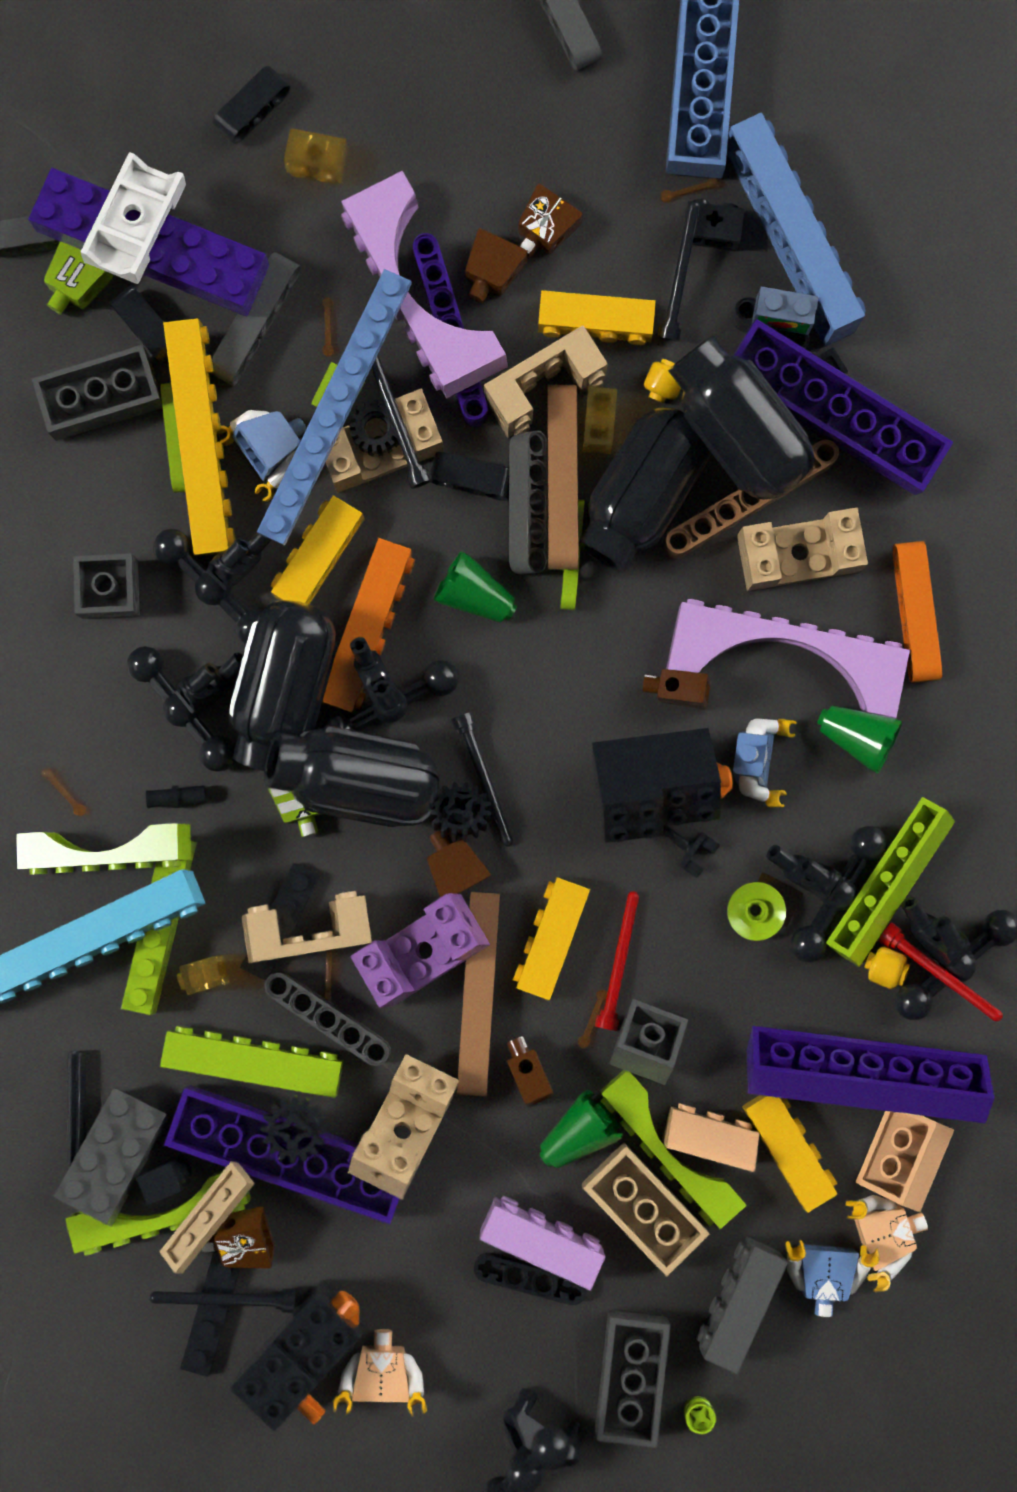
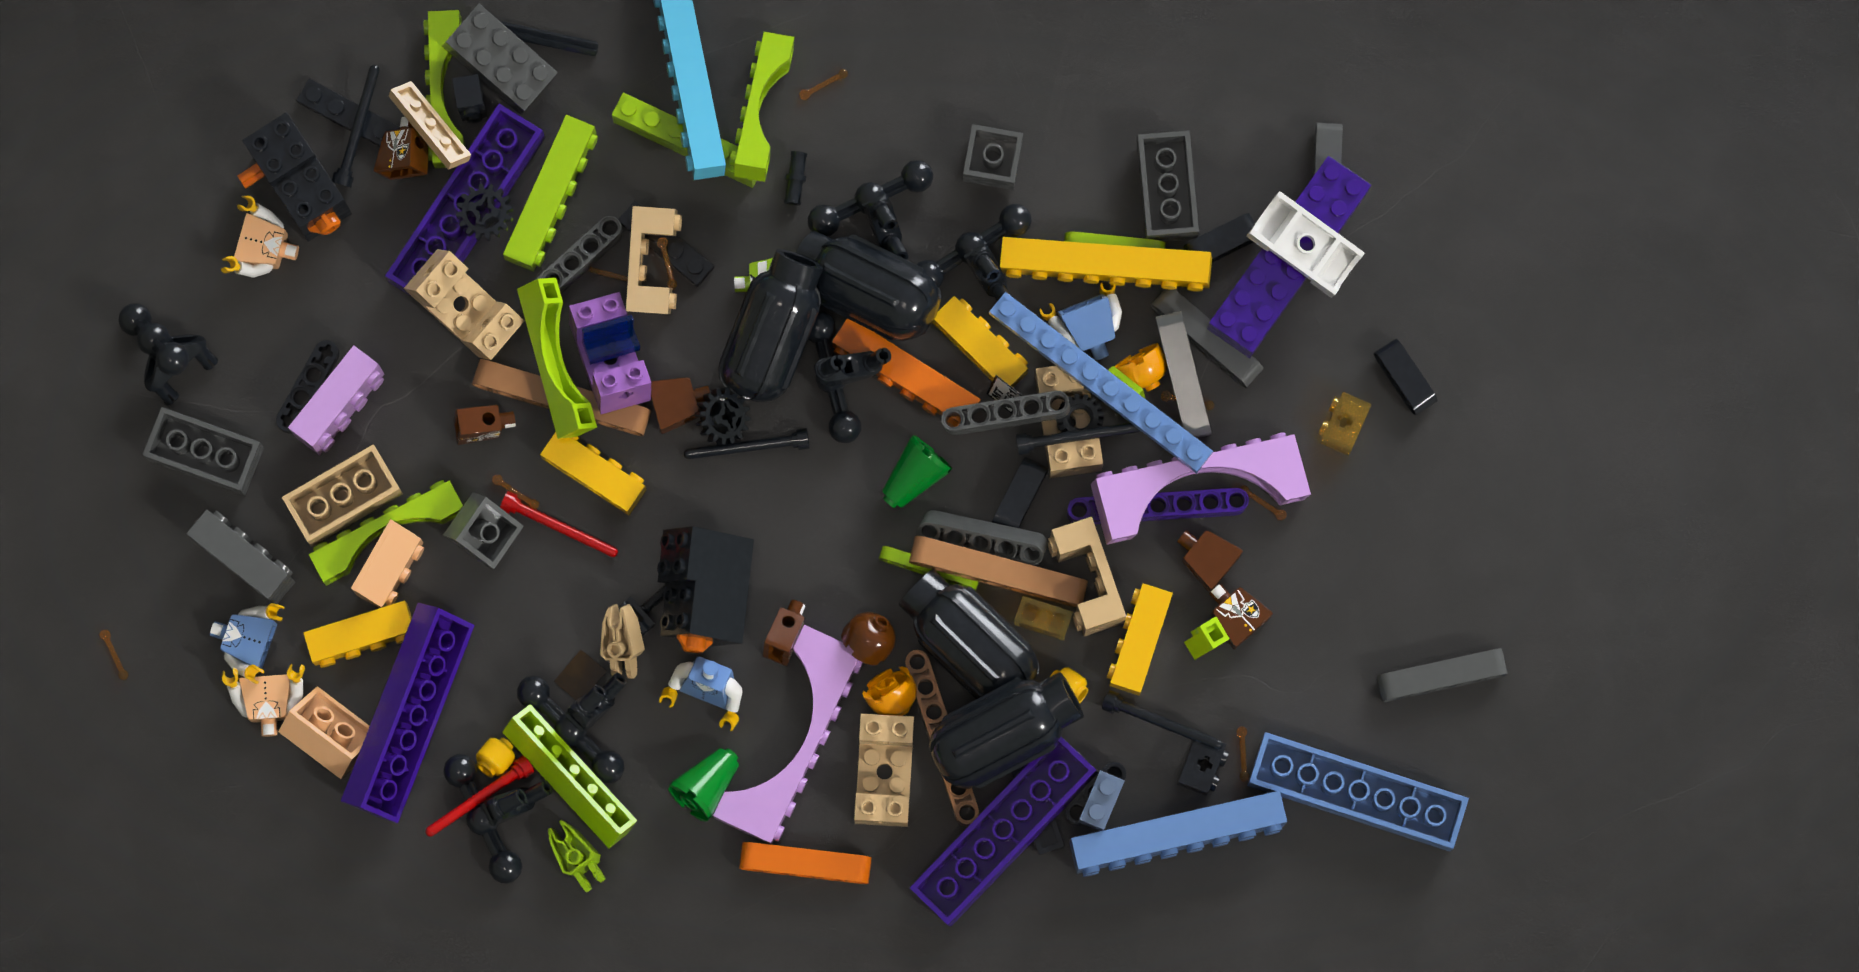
camera: 105 degrees right, 5 degrees down
(73, 279) = (1275, 179): lime torso -> none
(203, 974) = (634, 167): clear yellow brick -> none
(283, 923) = (662, 243): none -> clear orange hinge
(301, 330) = (1183, 374): none -> beam
(302, 373) = (1145, 367): none -> light orange cylinder
(366, 515) = (1001, 390): none -> sticker
(384, 489) = (993, 408): none -> dark grey beam
(392, 1036) = (542, 310): none -> lime arch
(406, 953) = (610, 339): none -> clear blue panel
(427, 206) = (1280, 514): none -> clear orange hinge
(580, 1132) = (421, 456): green cone -> none
(581, 246) = (1206, 638): none -> lime brick
(665, 597) = (869, 637): none -> reddish brown cylinder
(702, 1420) = (156, 502): lime wheel -> none
(717, 561) = (891, 692): none -> light orange cylinder
(731, 861) = (621, 639): none -> tan hinge
(769, 919) = (564, 645): lime dish -> none
(857, 1432) = (105, 635): none -> clear orange hinge
(971, 855) = (575, 855): none -> lime hinge

